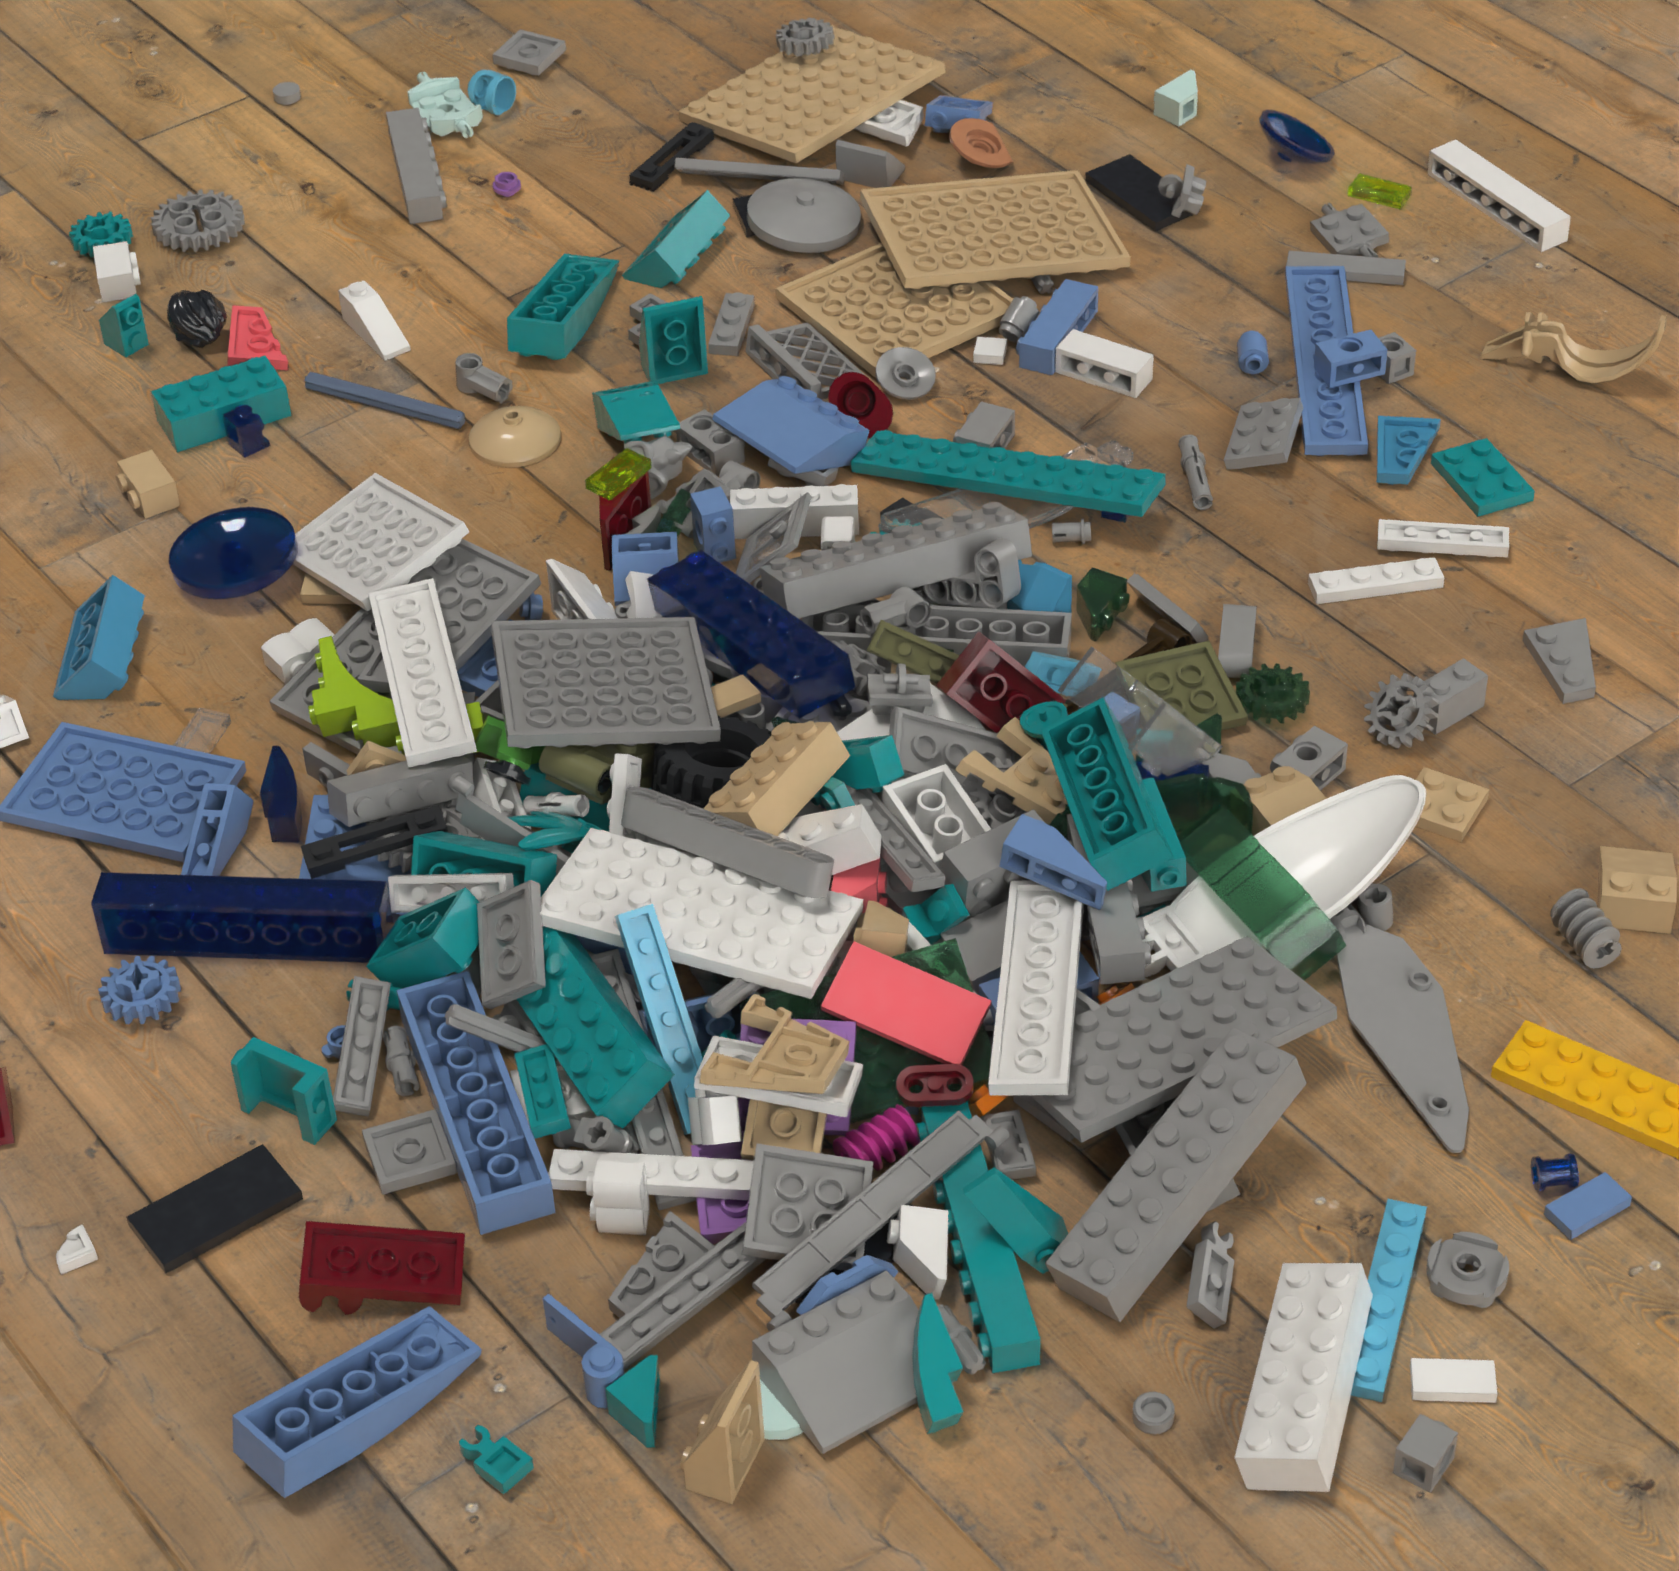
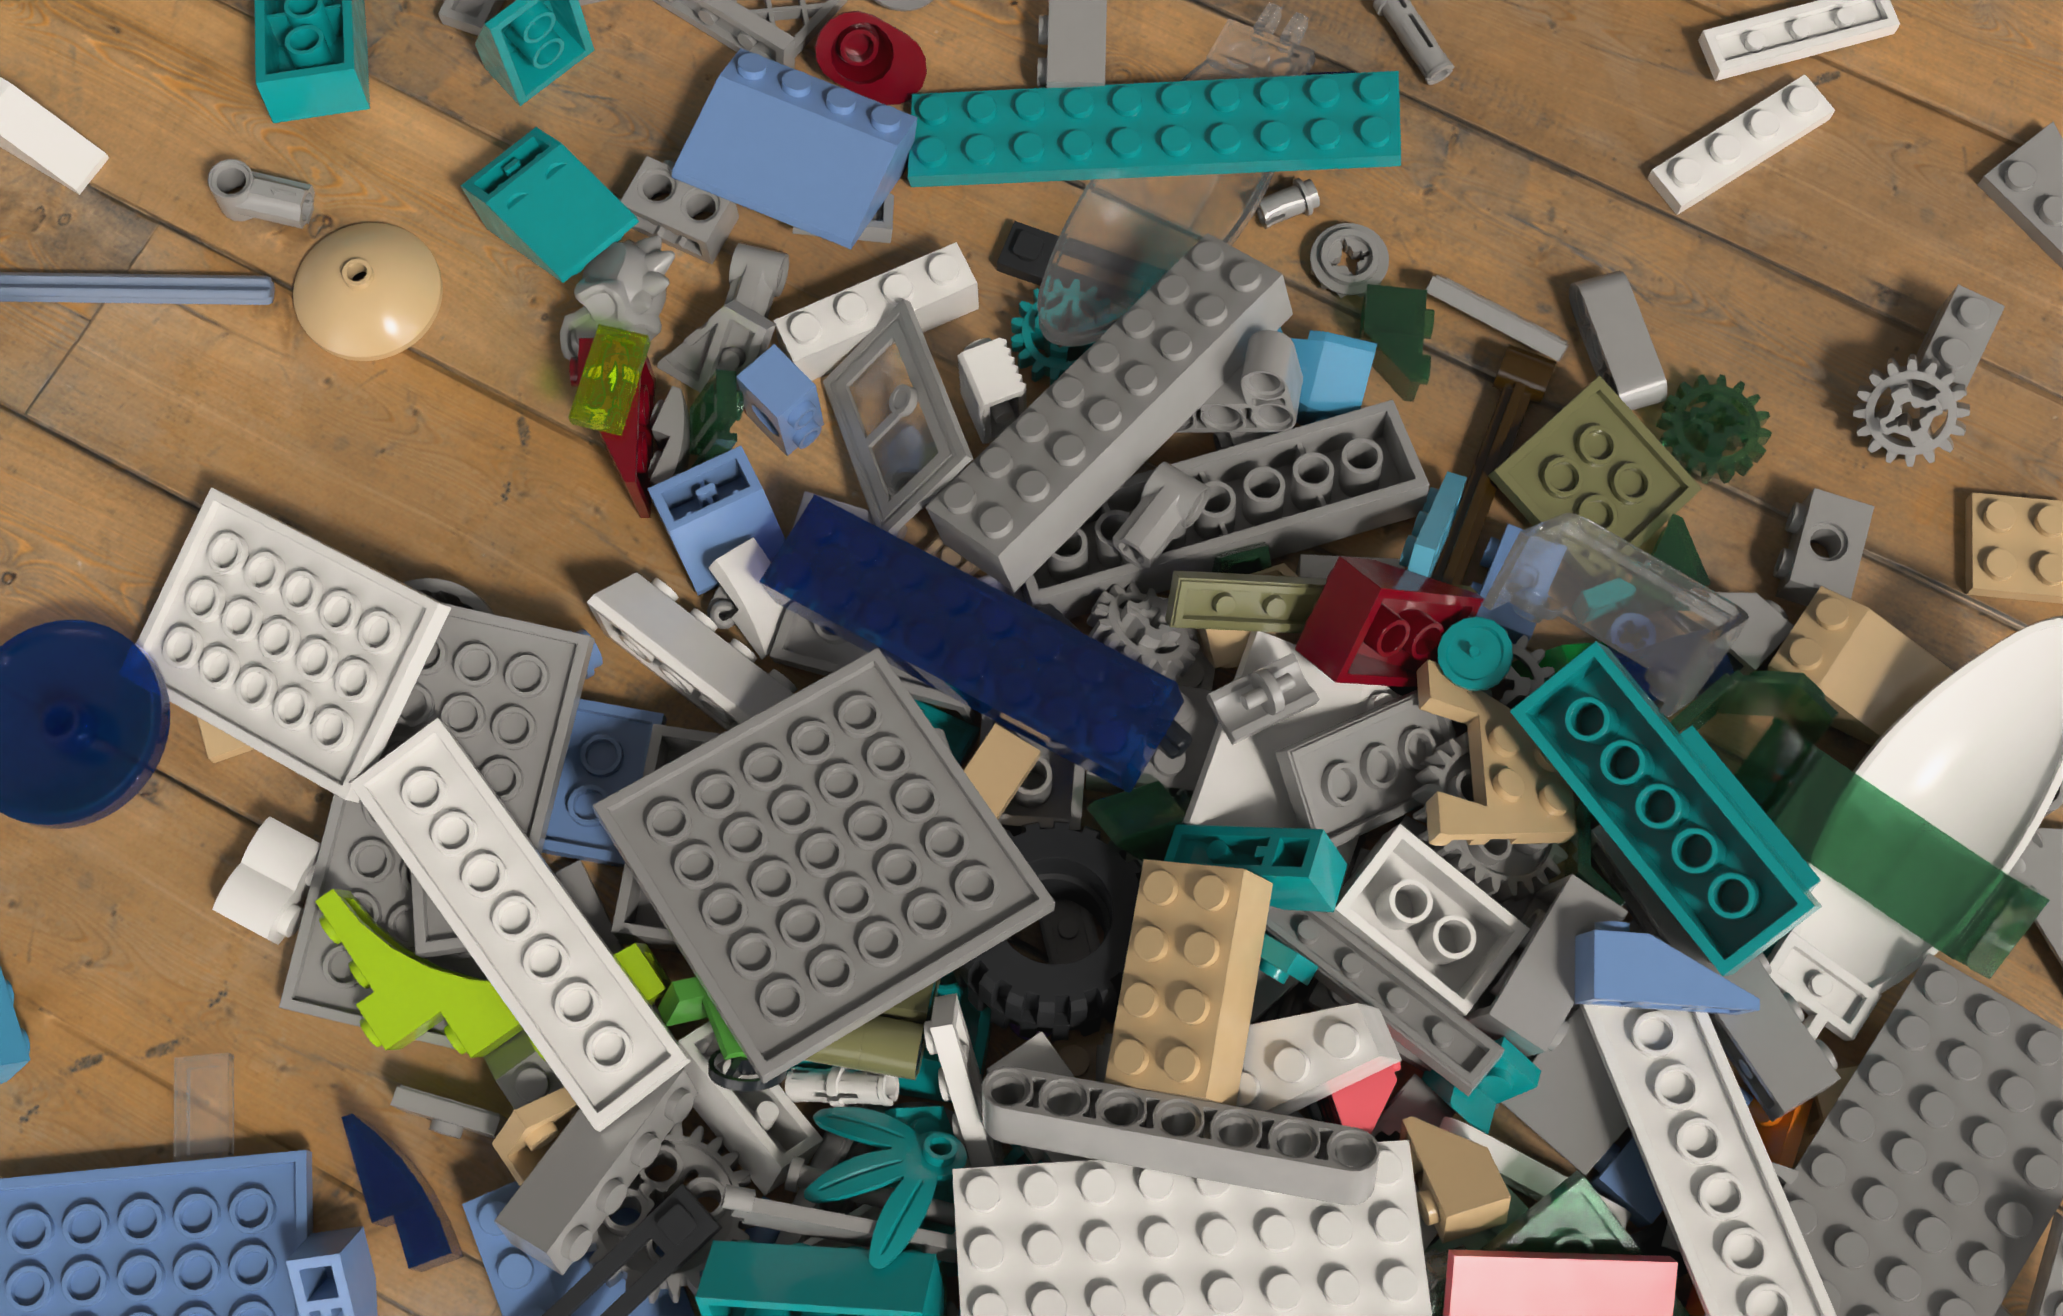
camera: 25 degrees left, 30 degrees up
(1083, 560) = (1360, 244): none -> light grey gear

